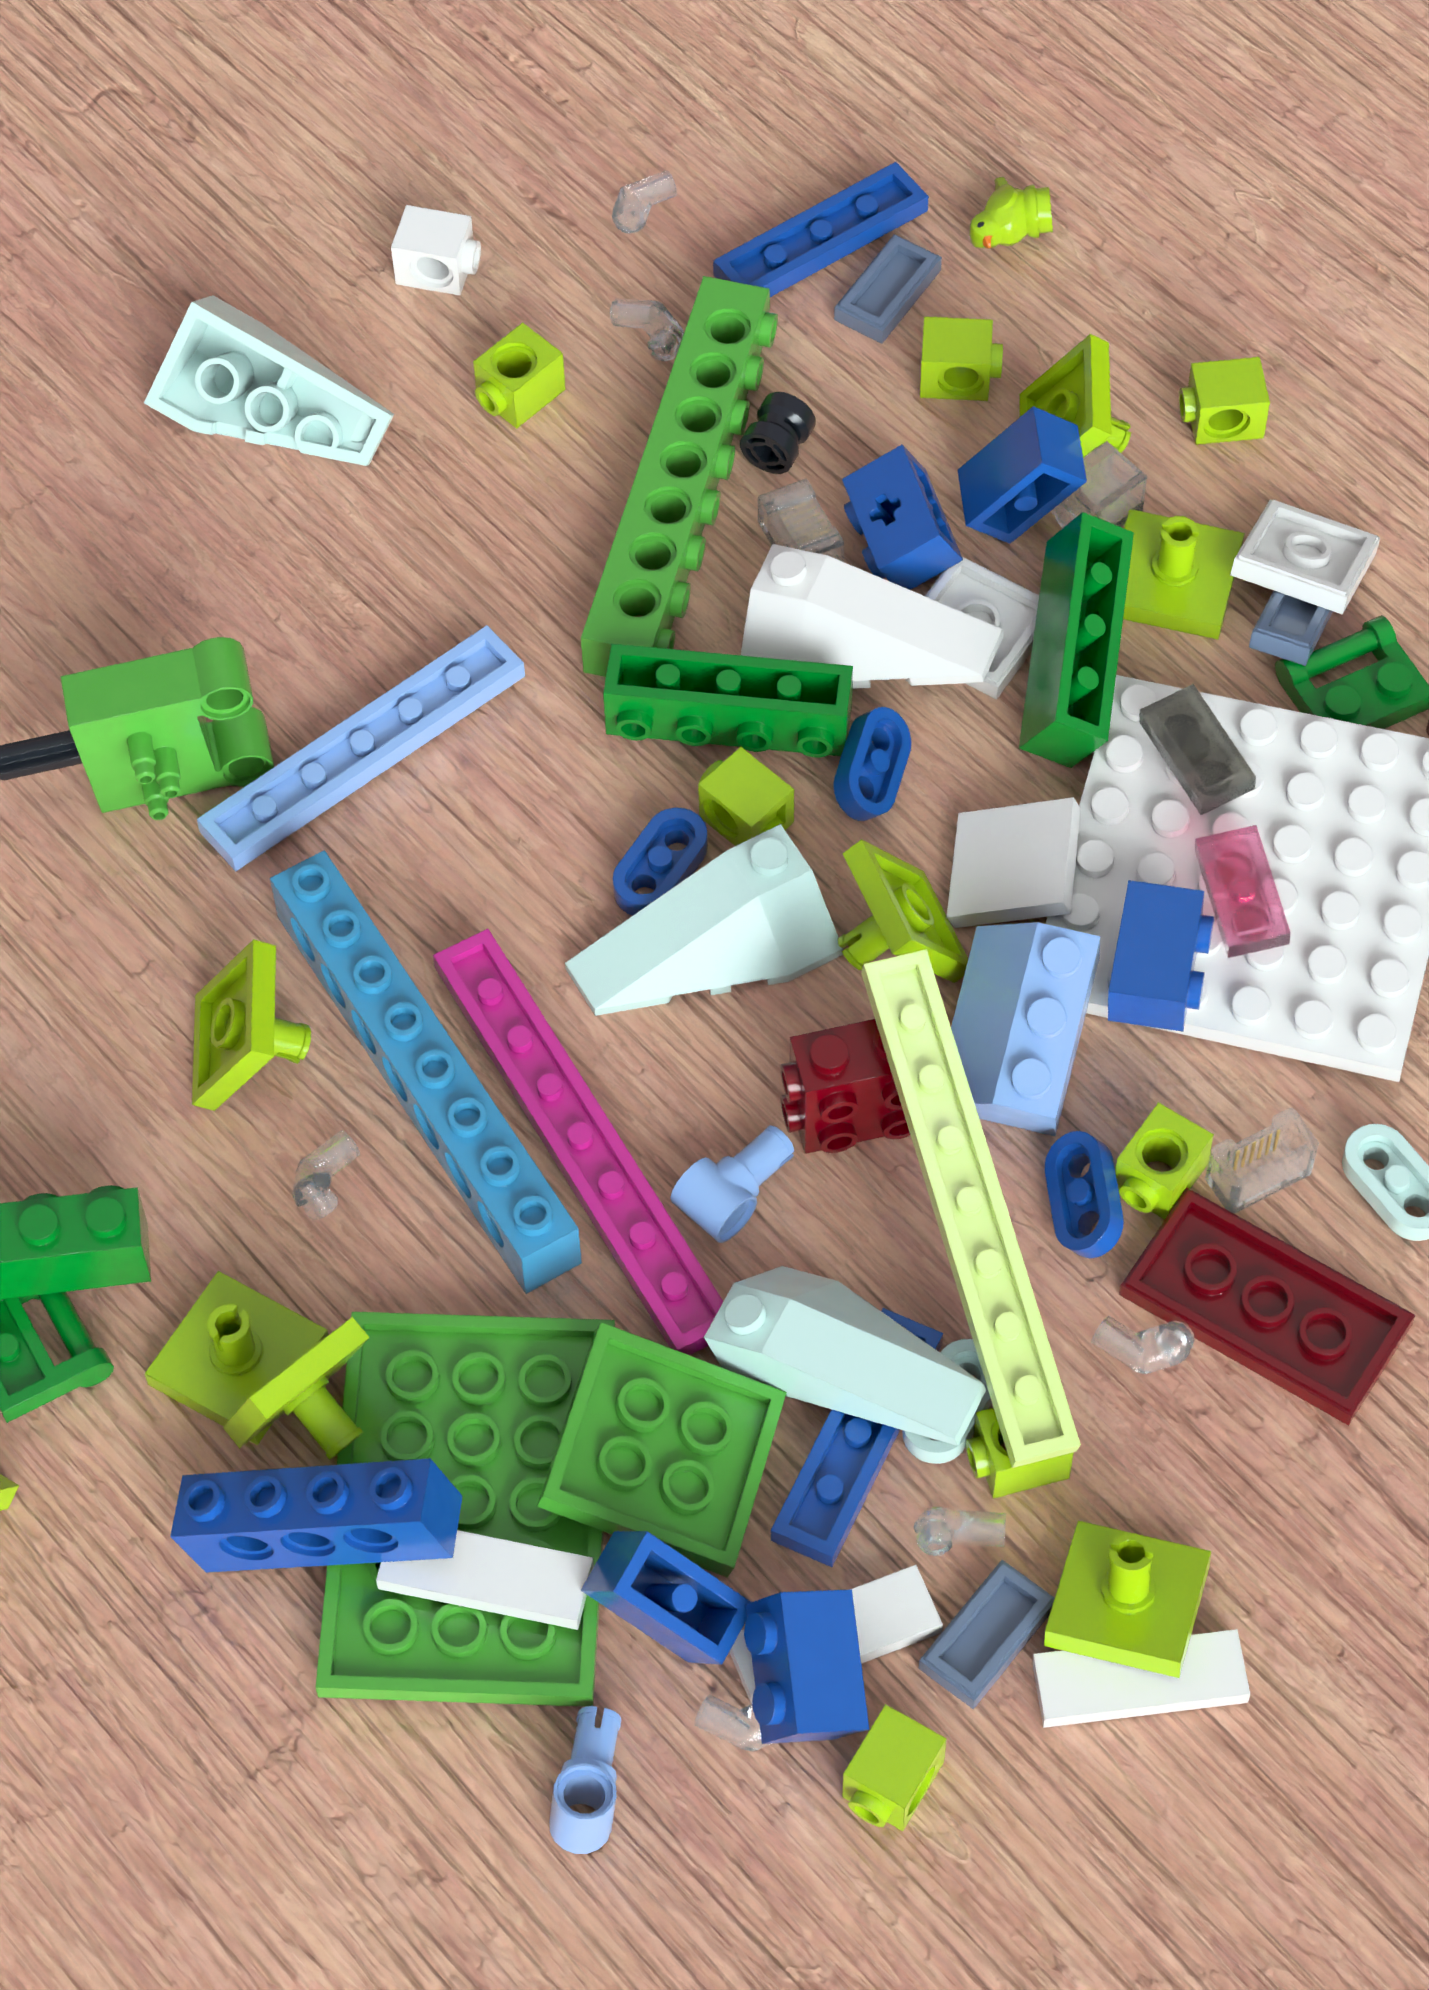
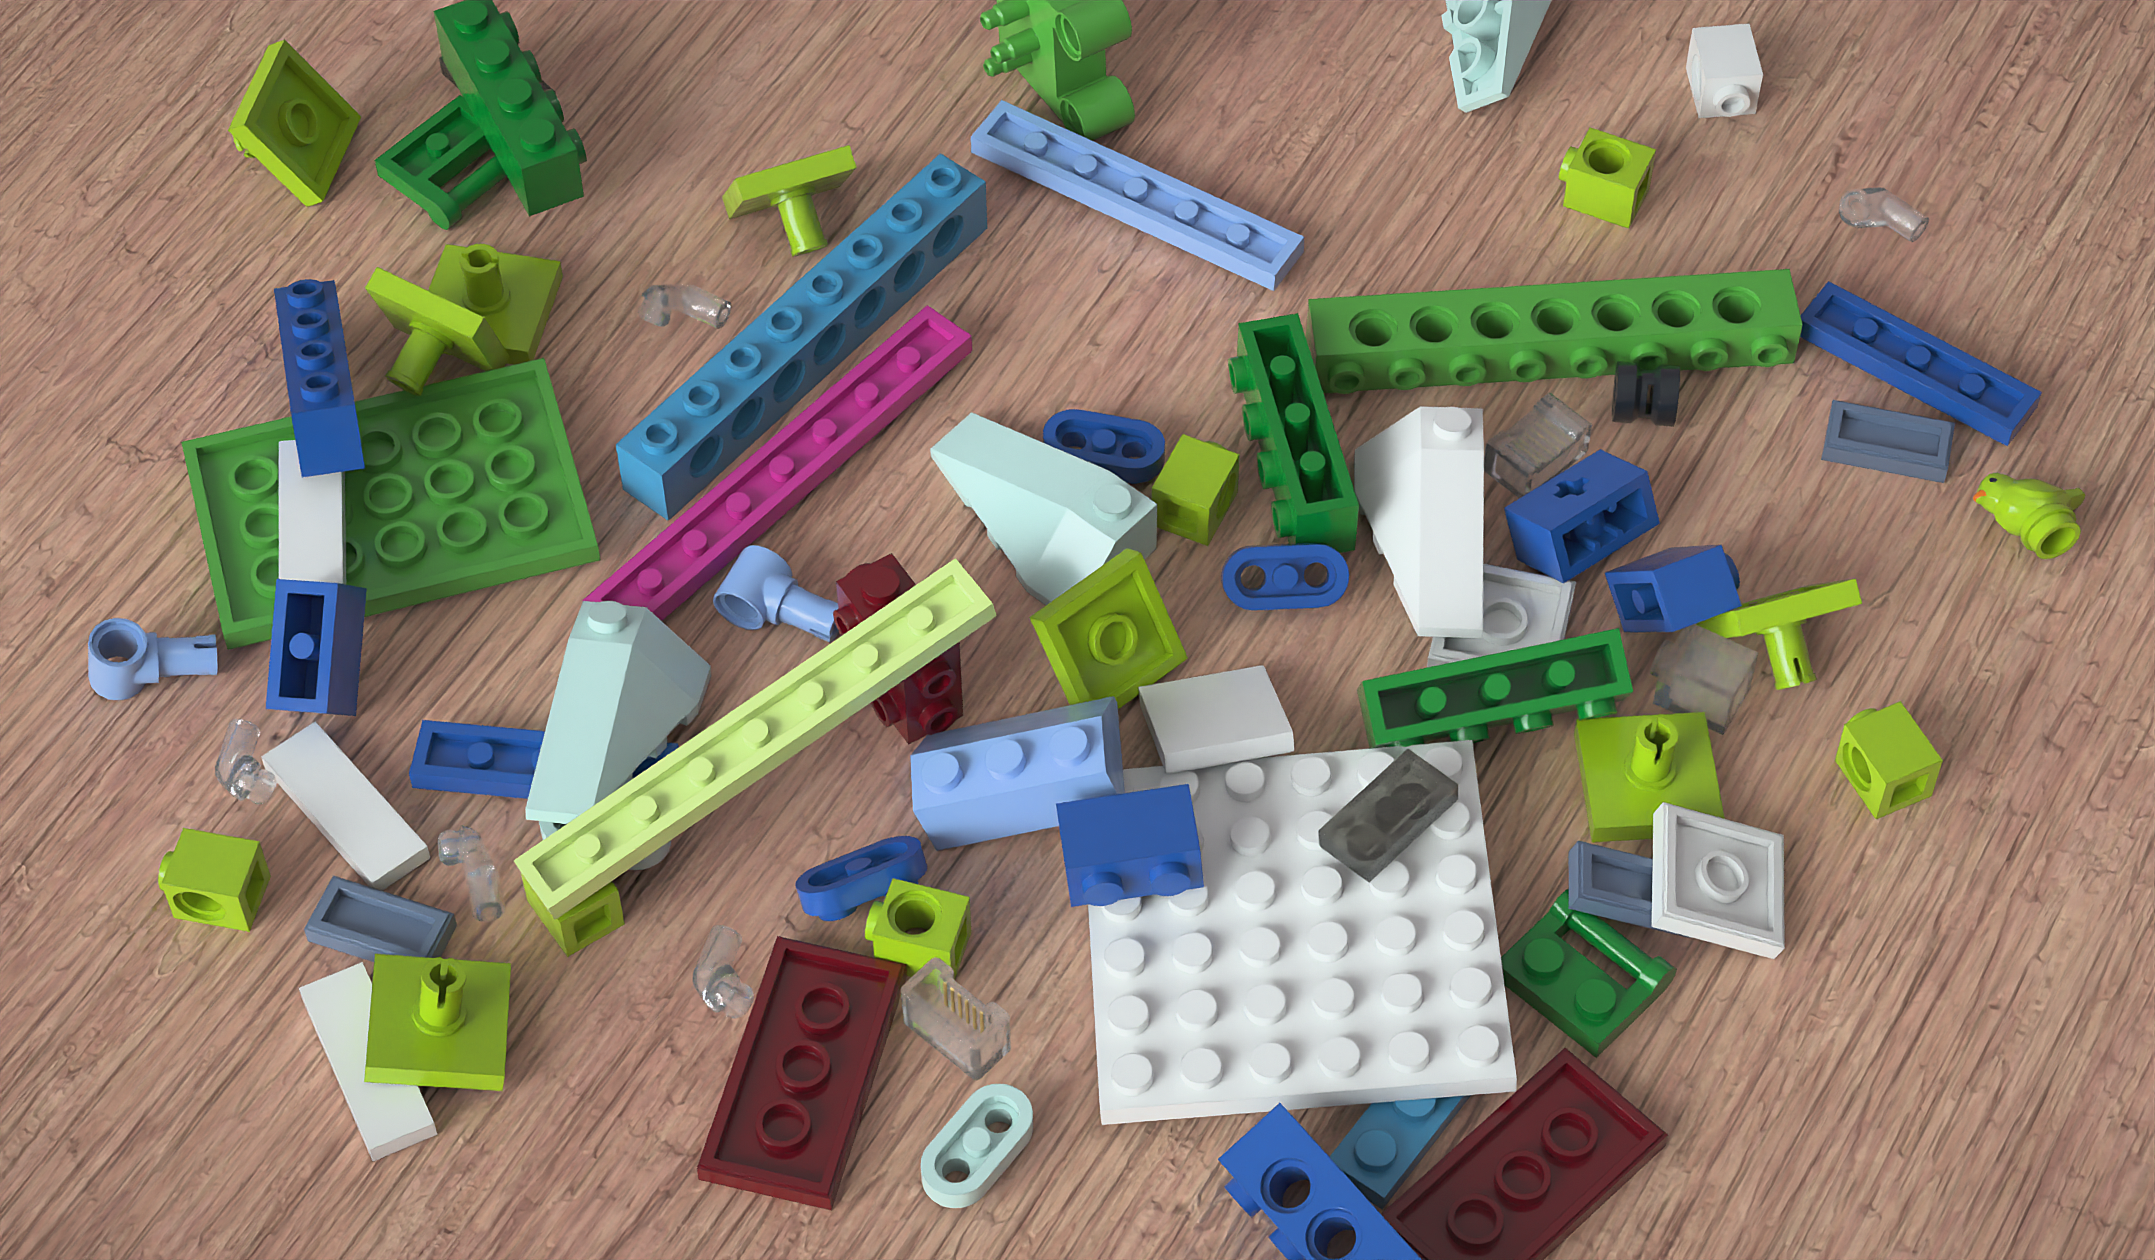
camera: 70 degrees right, 5 degrees down
(655, 319) = (1736, 250): clear arm -> none
(663, 1448) = (470, 611): bright green plate -> none
(806, 1666) = (274, 766): blue brick -> none
(958, 358) = (1816, 512): lime brick -> none
(1242, 891) = (1235, 899): clear pink plate -> none

